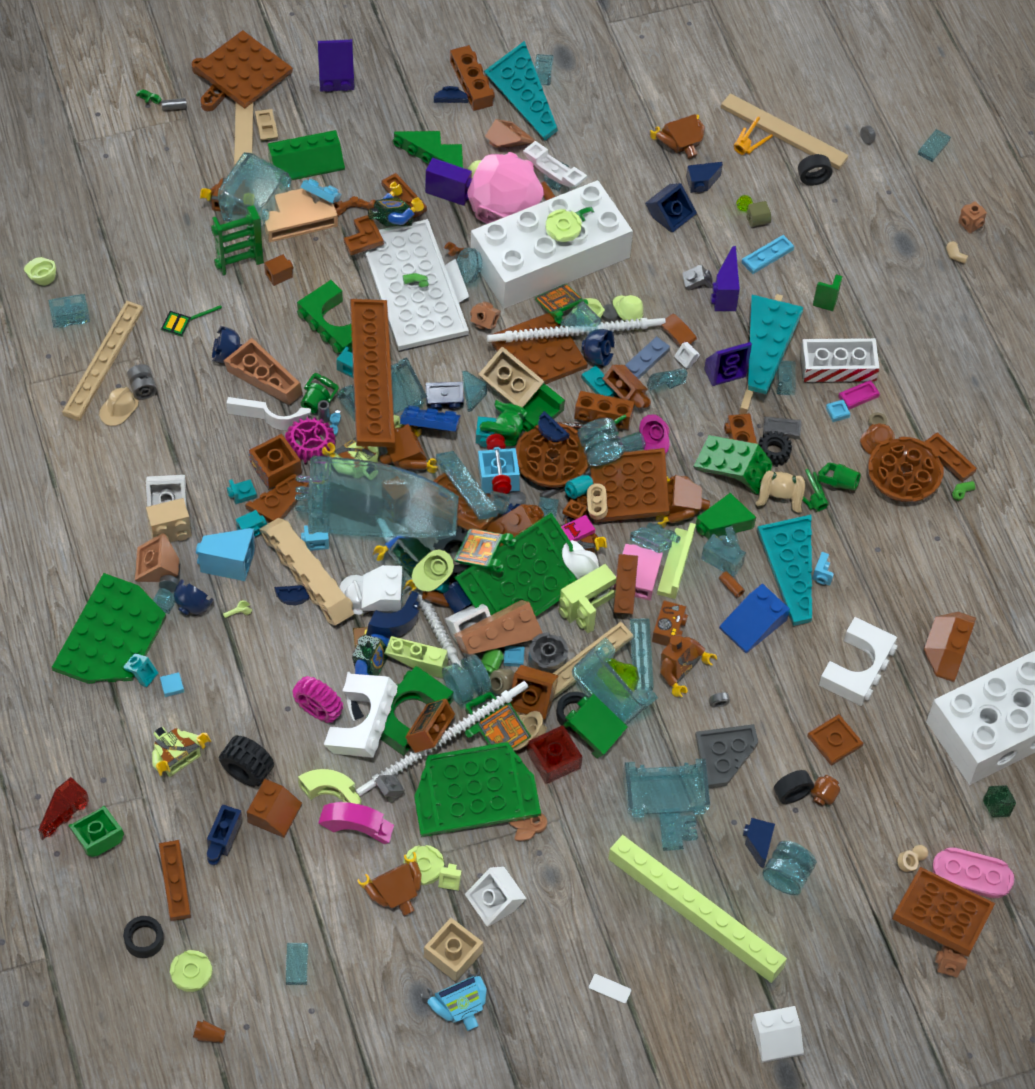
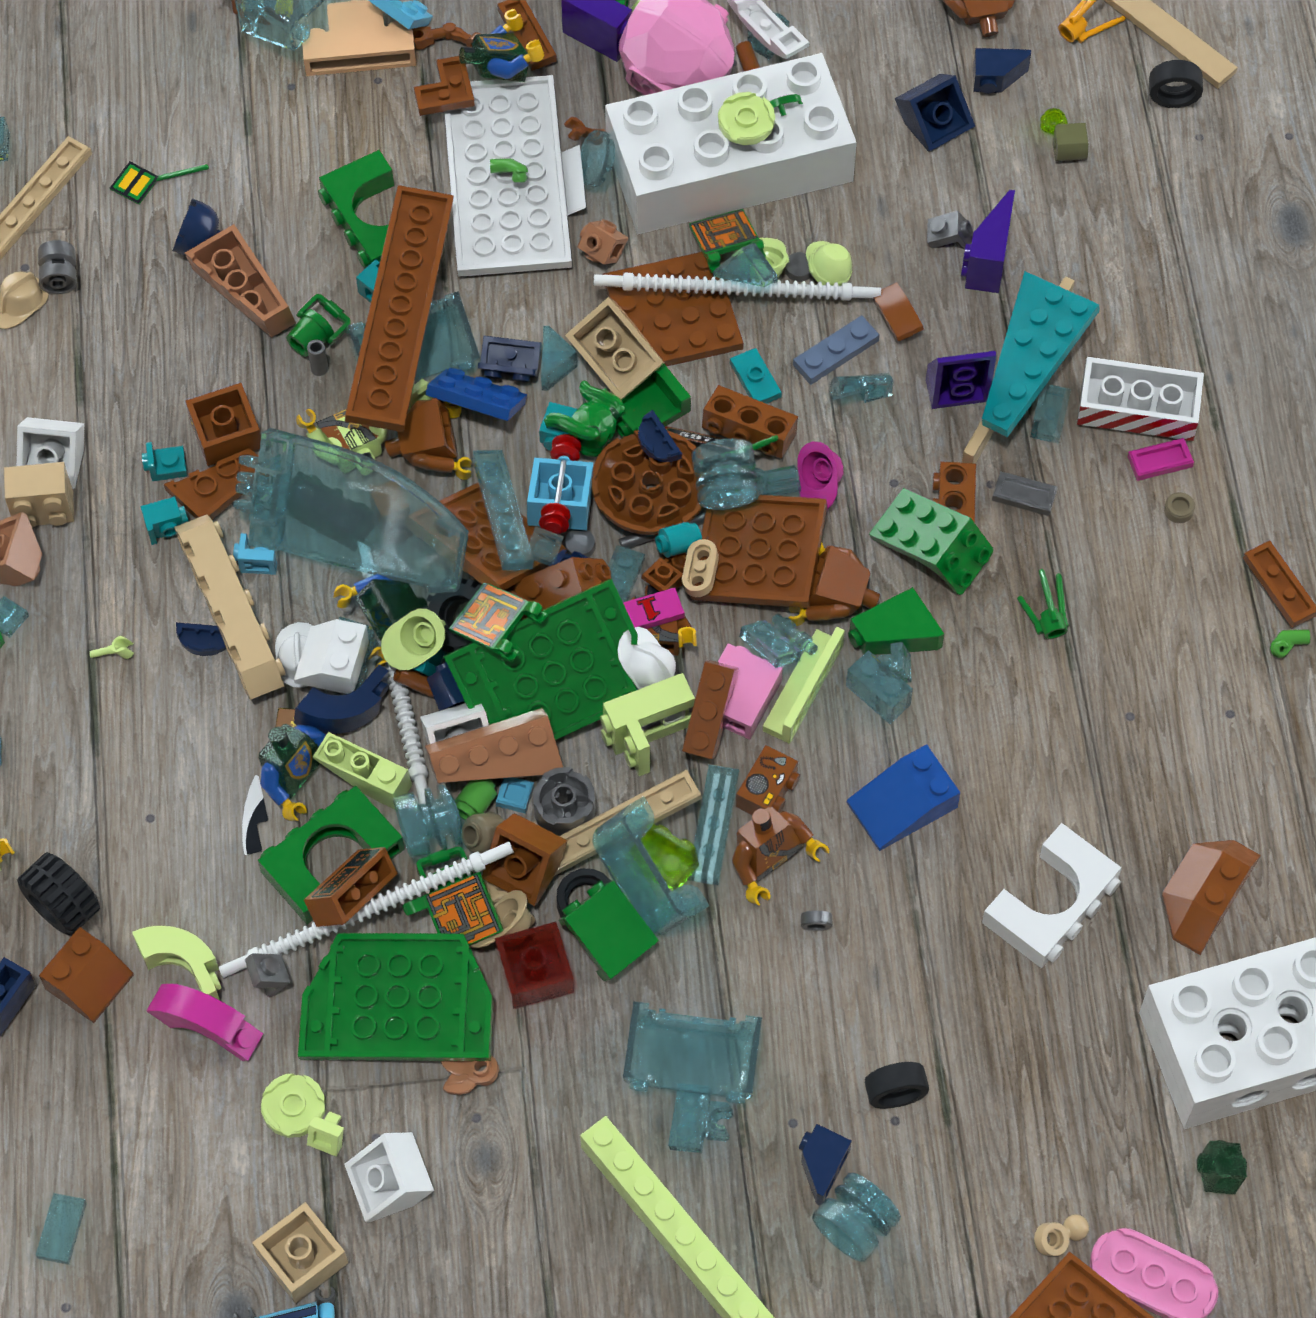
camera: 15 degrees right, 5 degrees up
(168, 582) = (19, 591): flat silver tile -> none
(191, 599) = (44, 621): dark blue cylinder -> none
(227, 554) = (115, 559): medium azure slope -> none
(254, 241) = (270, 56): green fence -> none
(259, 410) = (223, 339): white piece -> none
(278, 269) = (307, 121): dark orange brick -> none
(307, 433) = (287, 388): dark pink gear -> none
(317, 699) = (192, 814): dark pink gear -> none
(334, 421) = (334, 373): medium azure piece -> none
(364, 738) = (248, 887): white arch -> none
(395, 886) = (238, 1133): dark orange torso -> none
(598, 346) = (766, 318): dark blue cylinder -> none
(627, 385) = (794, 388): dark orange brick -> none
(687, 355) = (902, 353): white tile -> none
(725, 751) = (804, 1007): dark grey plate -> none
(734, 587) = (882, 735): dark orange axle -> none
(767, 254) = (1070, 209): medium azure tile -> none
(777, 440) = (1006, 511): black tyre -> none
(782, 486) = (999, 590): tan hair -> none
(790, 558) = (985, 704): teal wing -> none
(821, 571) = (1028, 737): medium azure bracket -> none
(825, 790) = (947, 1098): dark orange head -> none
(827, 295) = (1145, 291): green panel -> none
(835, 739) = (985, 1017): dark orange tile -> none
(838, 411) = (1120, 480): medium azure tile -> none
(842, 477) = (1098, 589): green piece -> none
(867, 134) = (1276, 38): flat silver tile -> none
(875, 435) = (1172, 536): dark orange hat -> none
(907, 454) = (1207, 570): dark orange brick -> none

